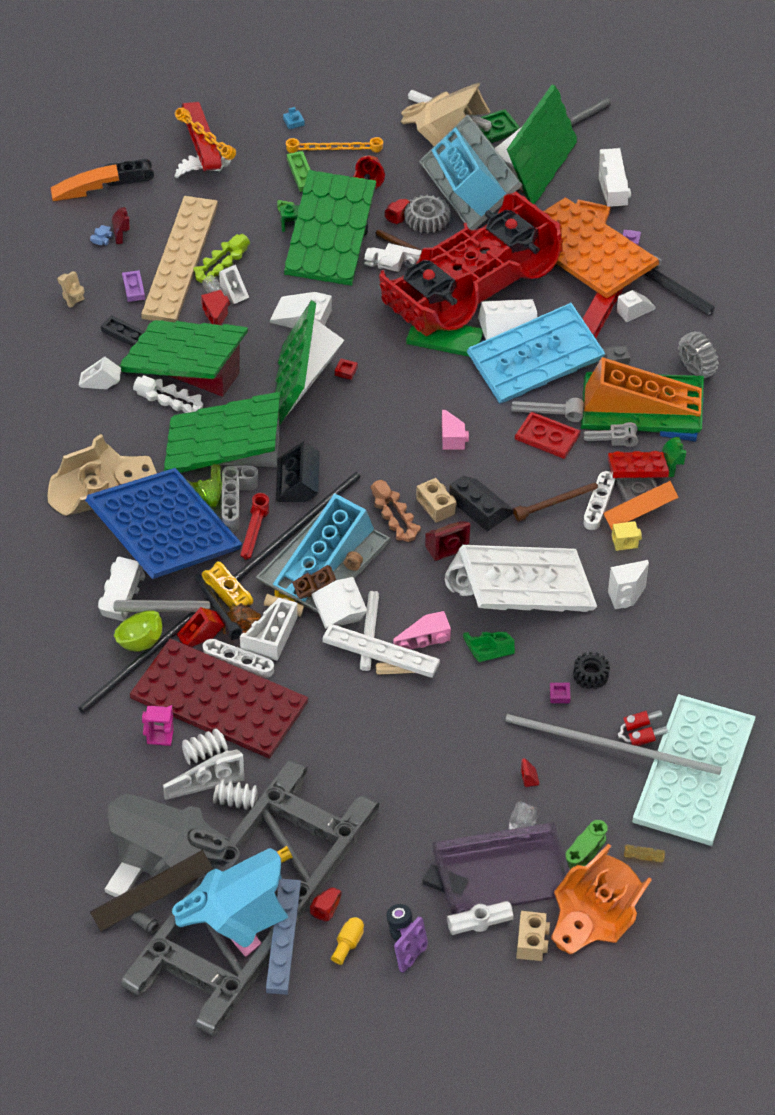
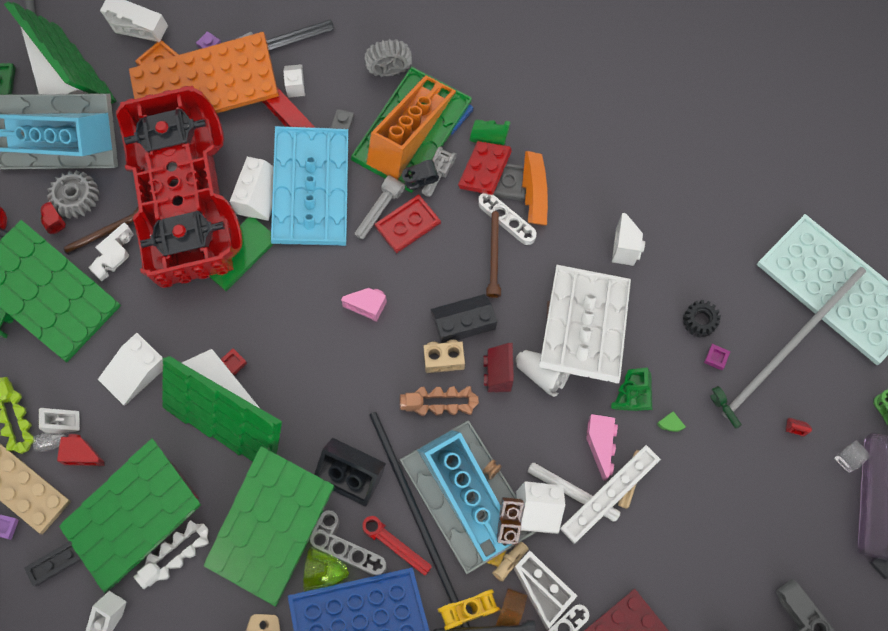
camera: 65 degrees left, 20 degrees up
(475, 680) = (671, 423): none -> bright green tile
(517, 707) = (720, 399): none -> dark green piece
(595, 418) = (421, 174): none -> black piece
(626, 536) = (562, 217): light yellow brick -> none
(640, 720) = (793, 309): red piece -> none

